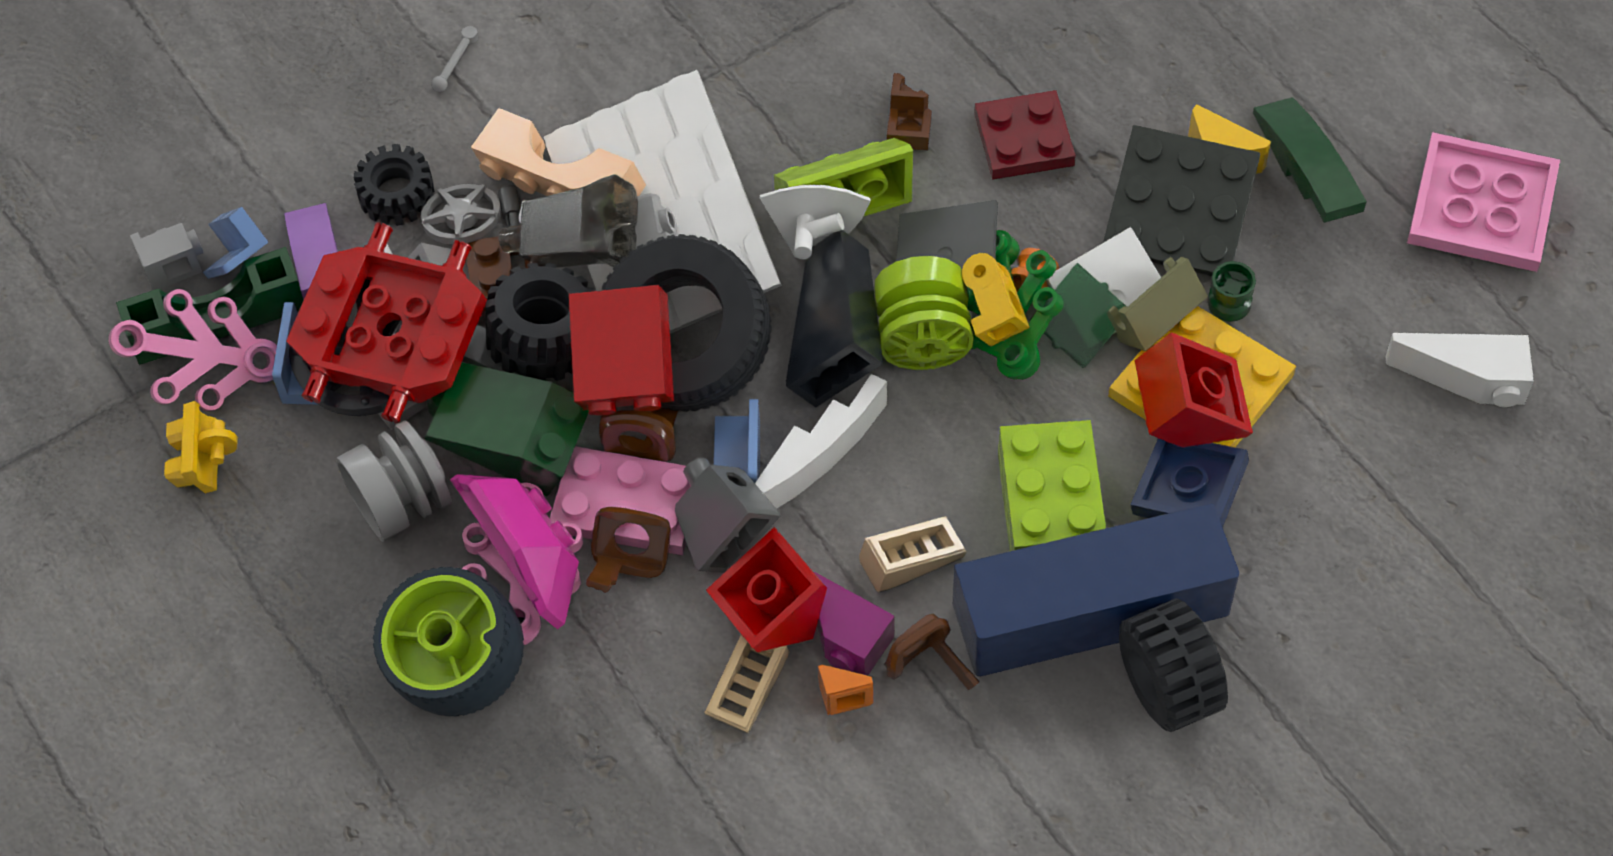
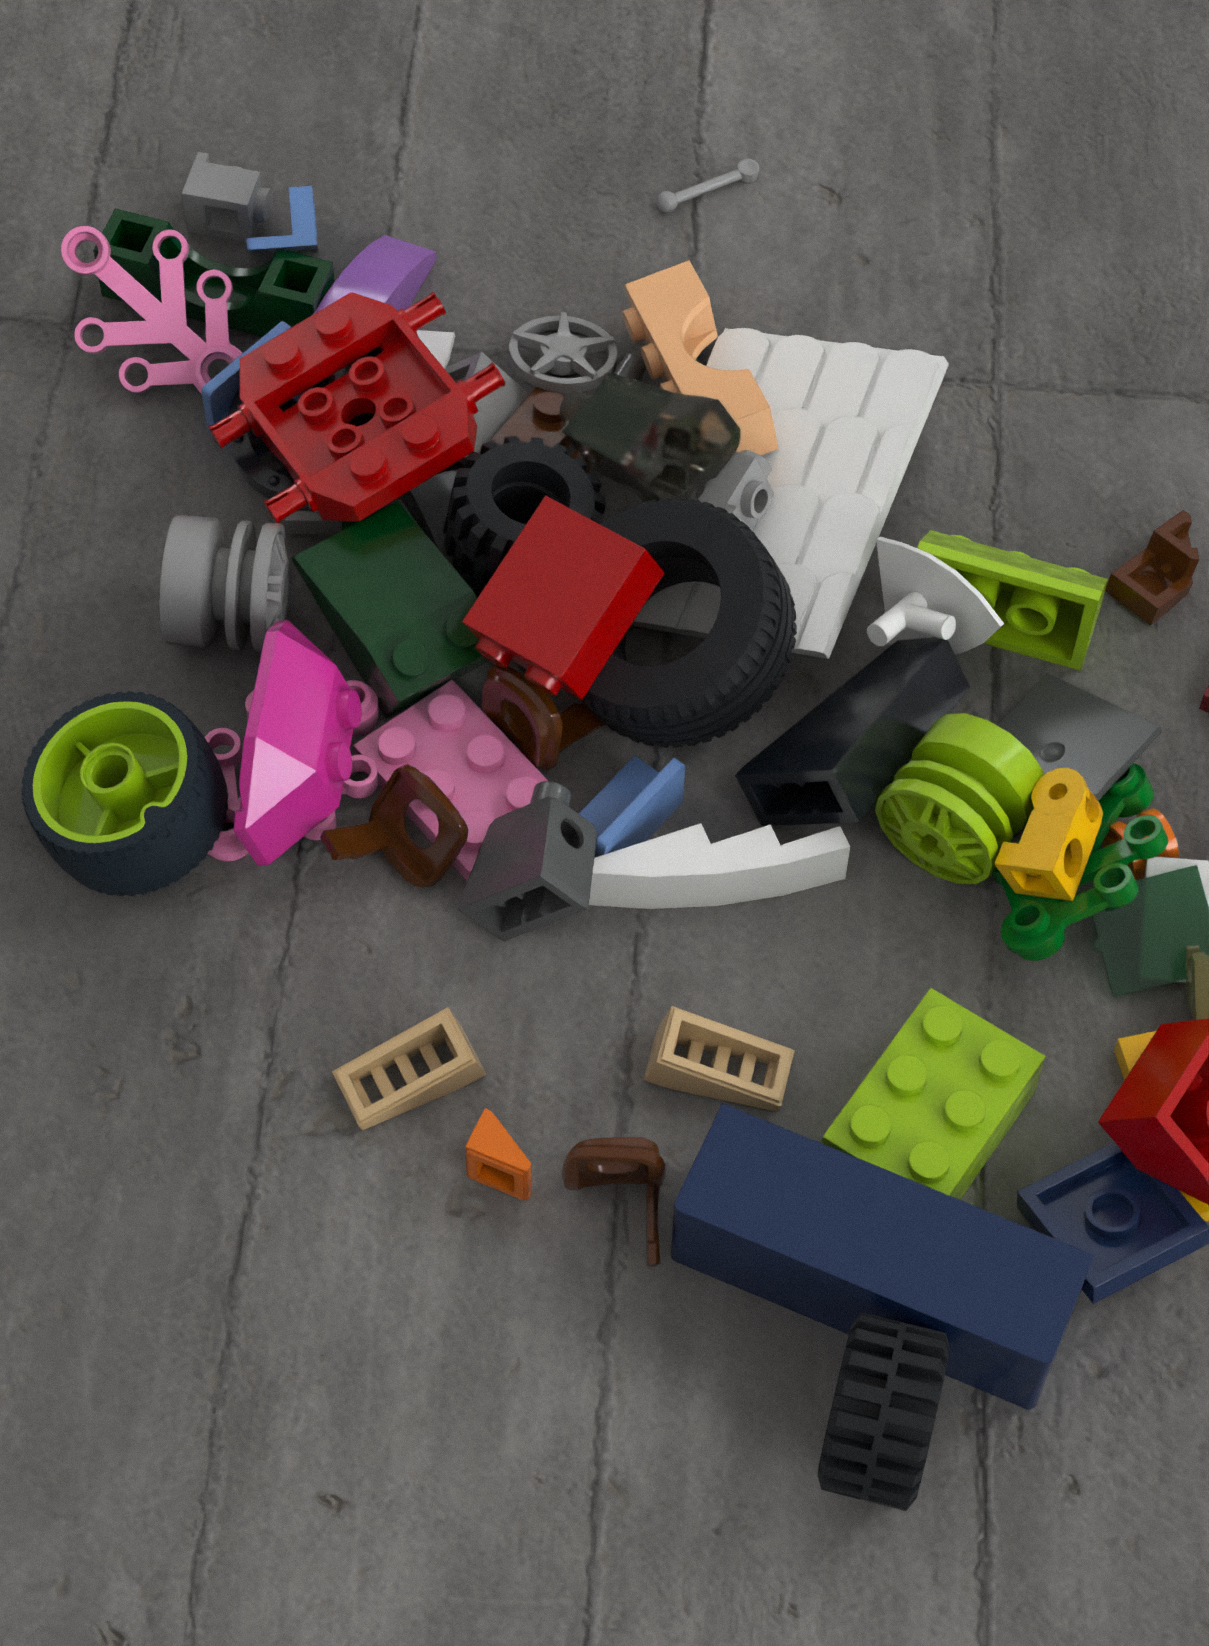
camera: 35 degrees right, 0 degrees up
(202, 448) = (77, 418): yellow hips -> none
(389, 166) = (519, 252): black tyre -> none
(771, 594) = (500, 992): red slope -> none
(853, 629) = (564, 1092): magenta slope -> none

